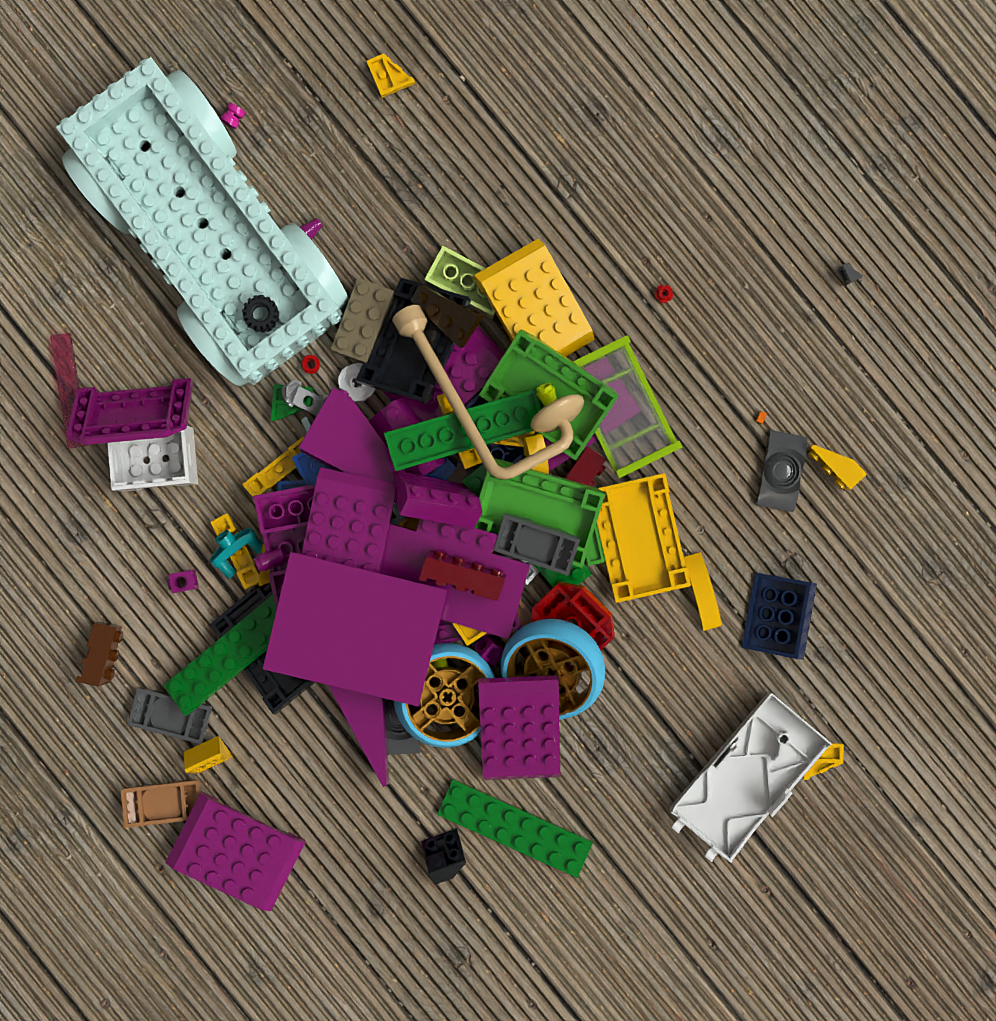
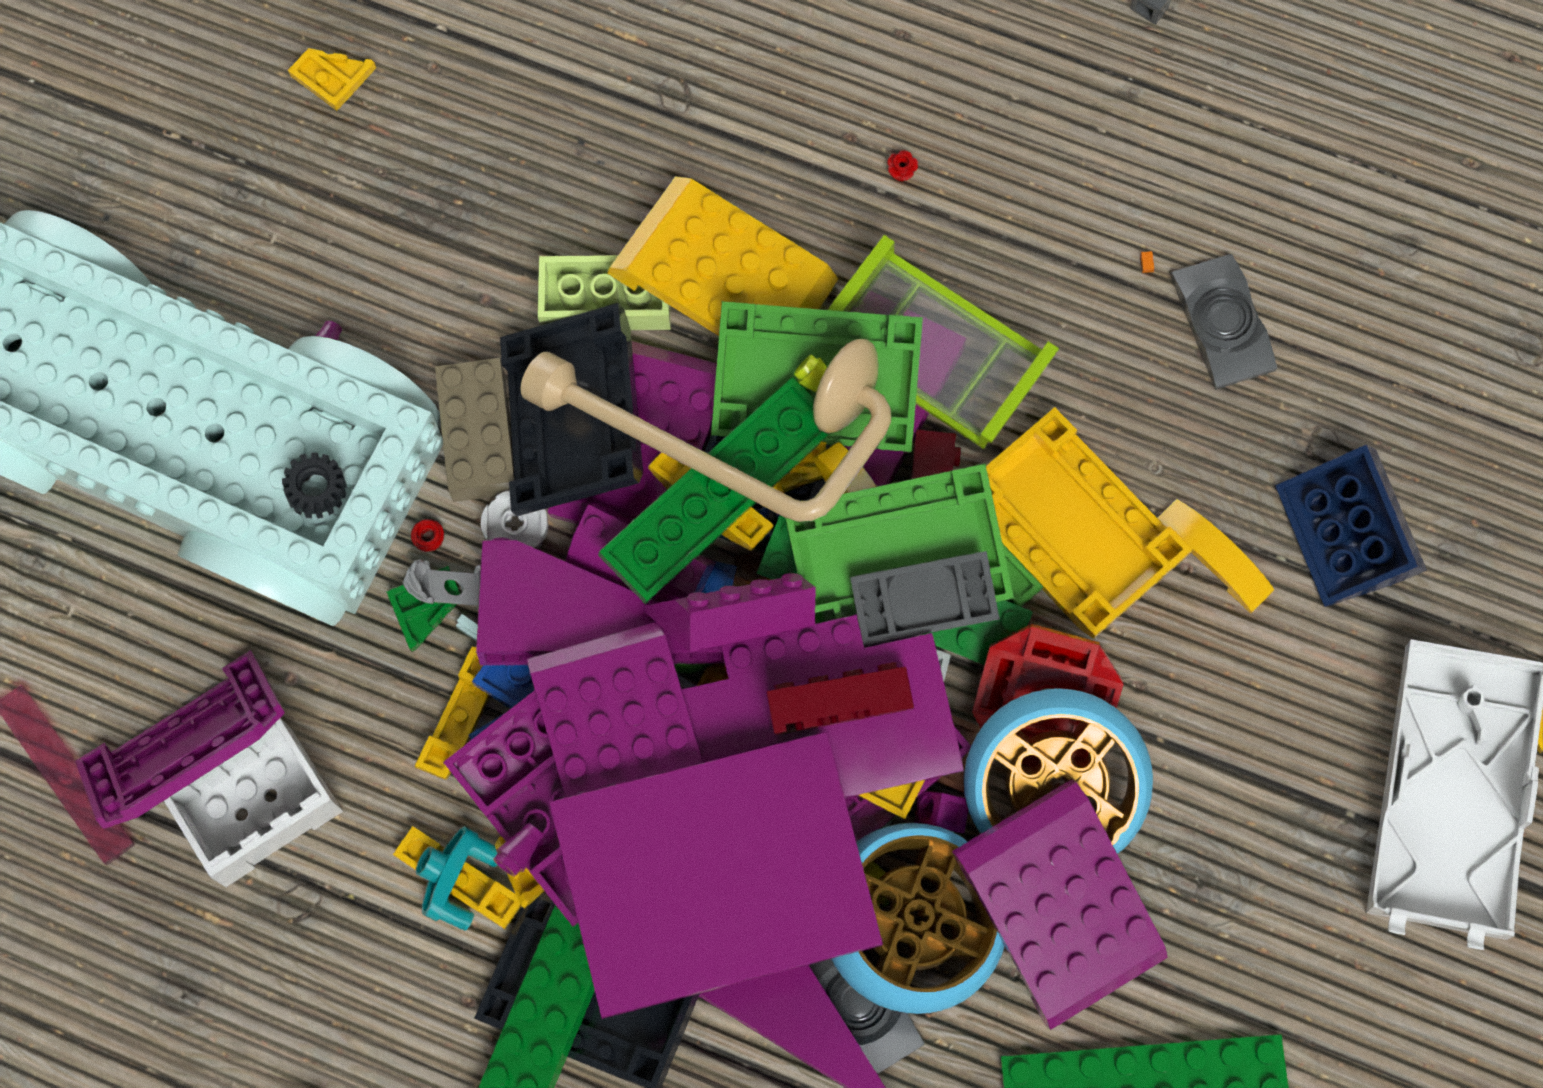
camera: 30 degrees left, 15 degrees down
(191, 581) = (411, 973): magenta brick -> none
(232, 115) = (126, 239): dark pink wheel -> none
(451, 318) = (605, 342): dark brown wing -> none
(841, 468) = (1304, 268): yellow slope -> none

